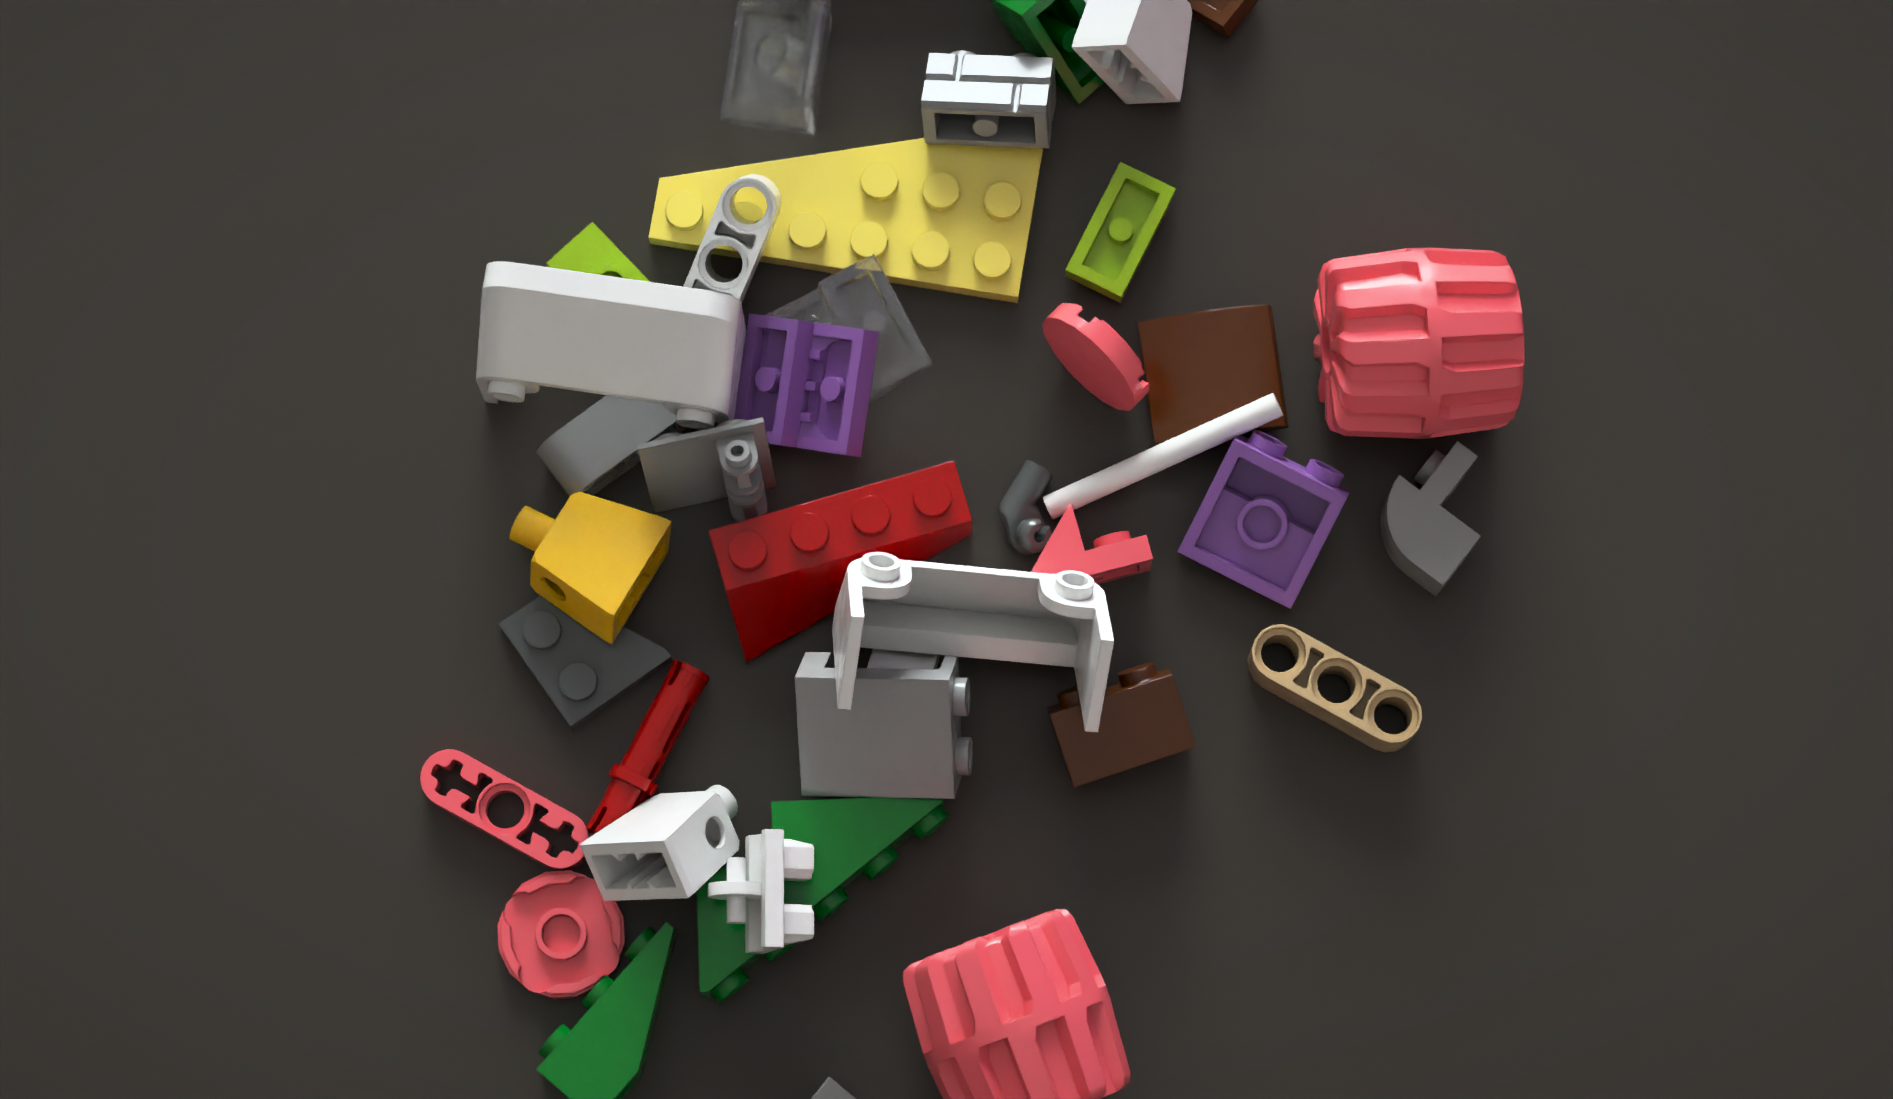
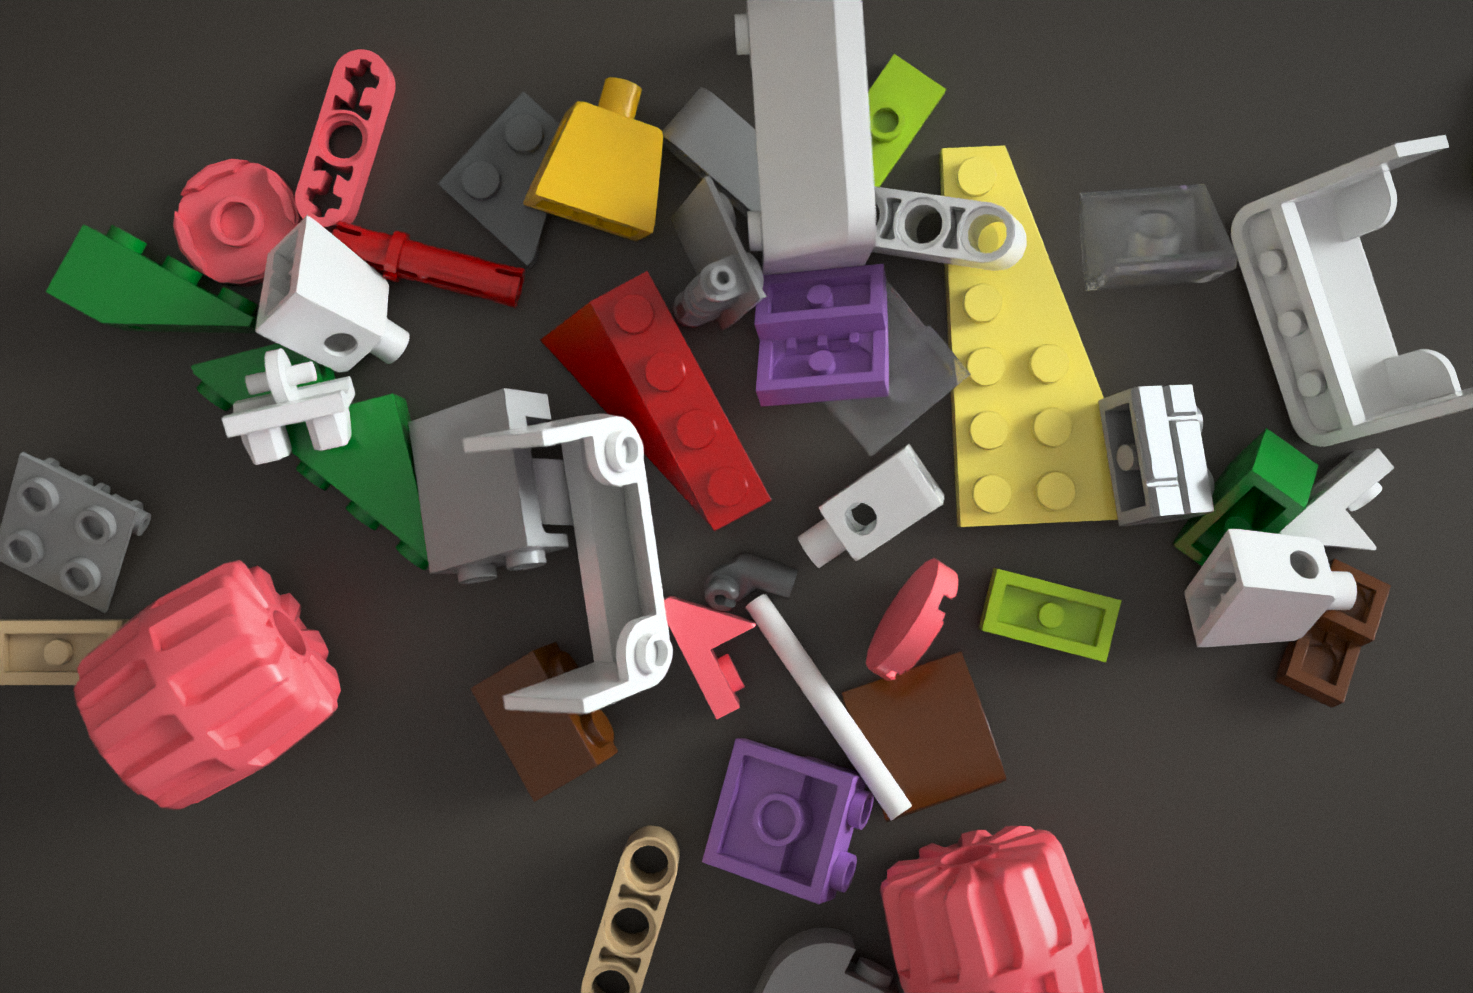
camera: 75 degrees right, 10 degrees up
(978, 342) = (896, 490): none -> white torso

